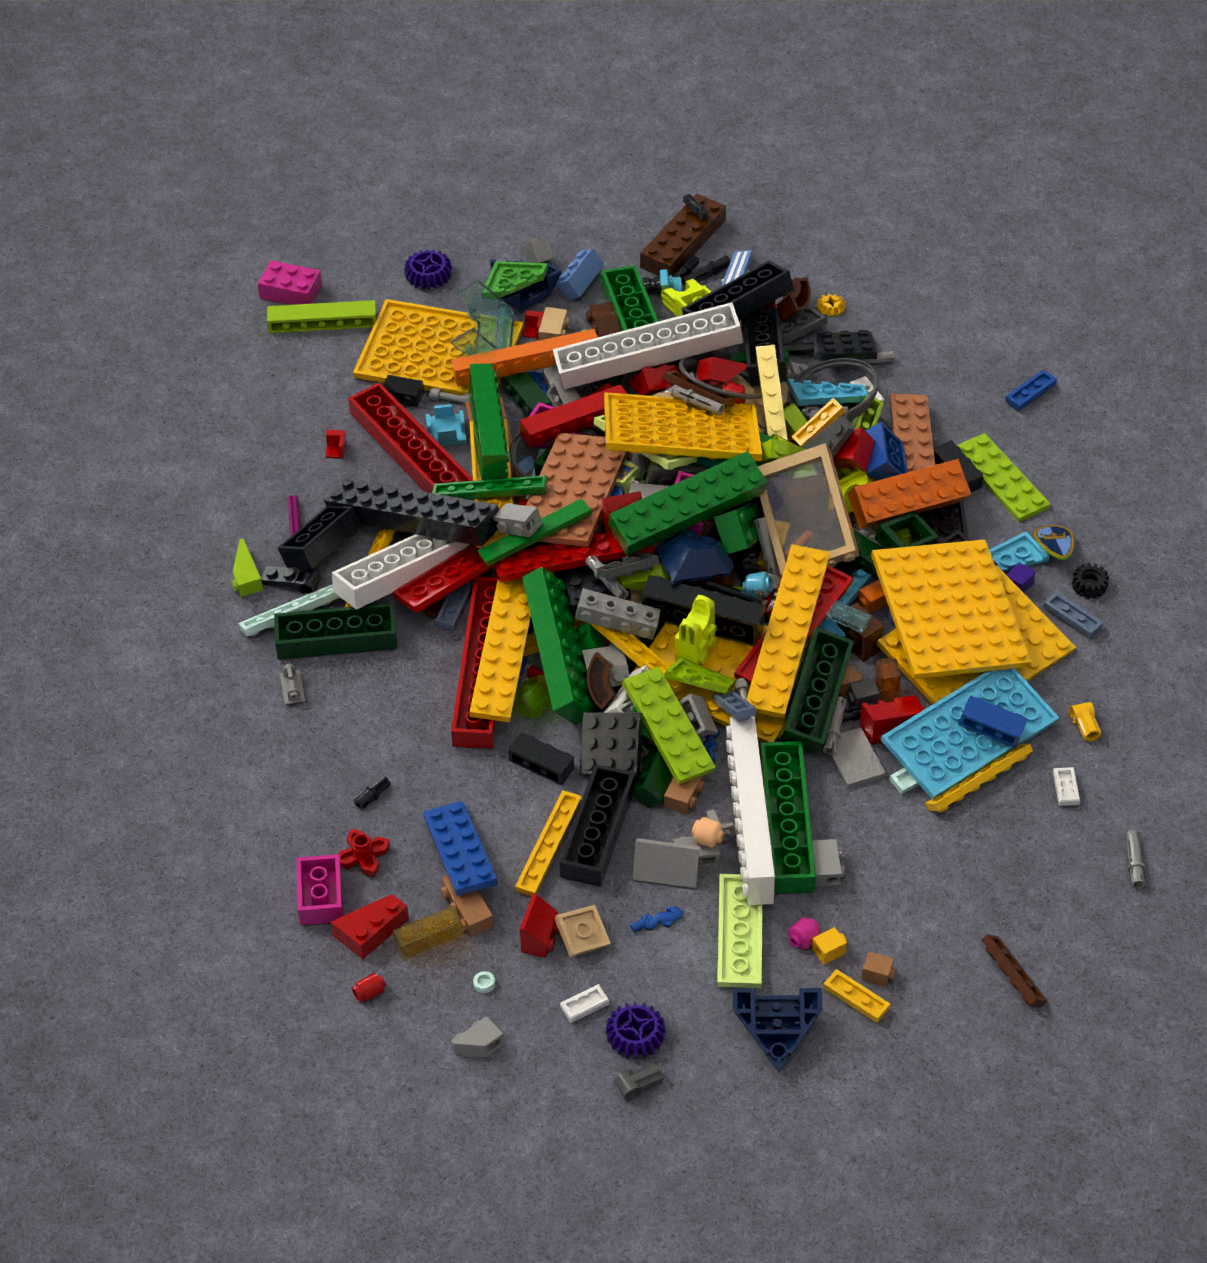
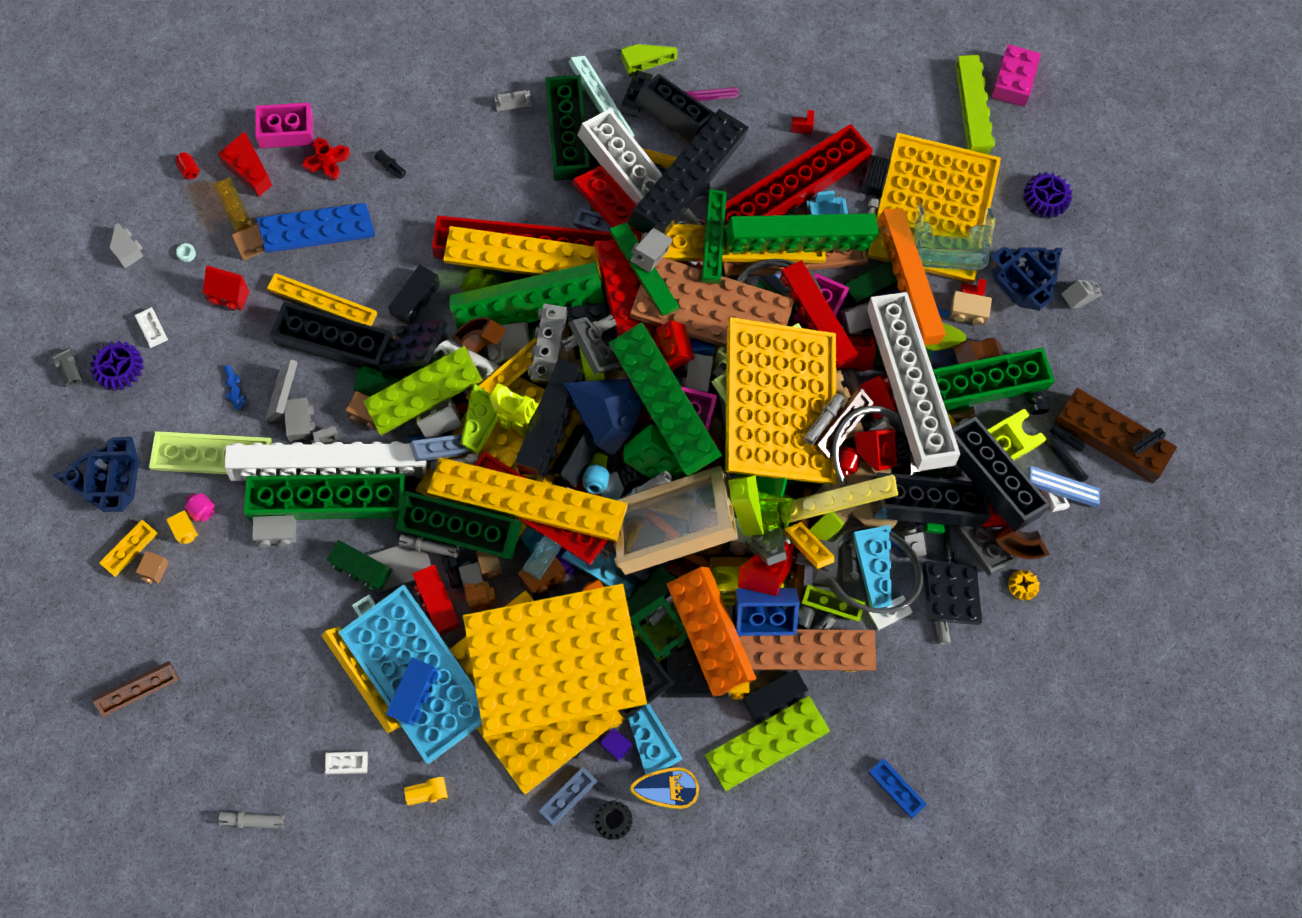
camera: 85 degrees right, 20 degrees up
(513, 276) = (1022, 261): bright green plate -> none
(579, 274) = (1046, 331): medium blue brick -> none
(582, 931) = (219, 323): tan plate -> none
(670, 282) = (1039, 419): medium azure bracket -> none
(707, 832) = (301, 422): light nougat head -> none
(861, 782) = (359, 565): none -> dark green brick

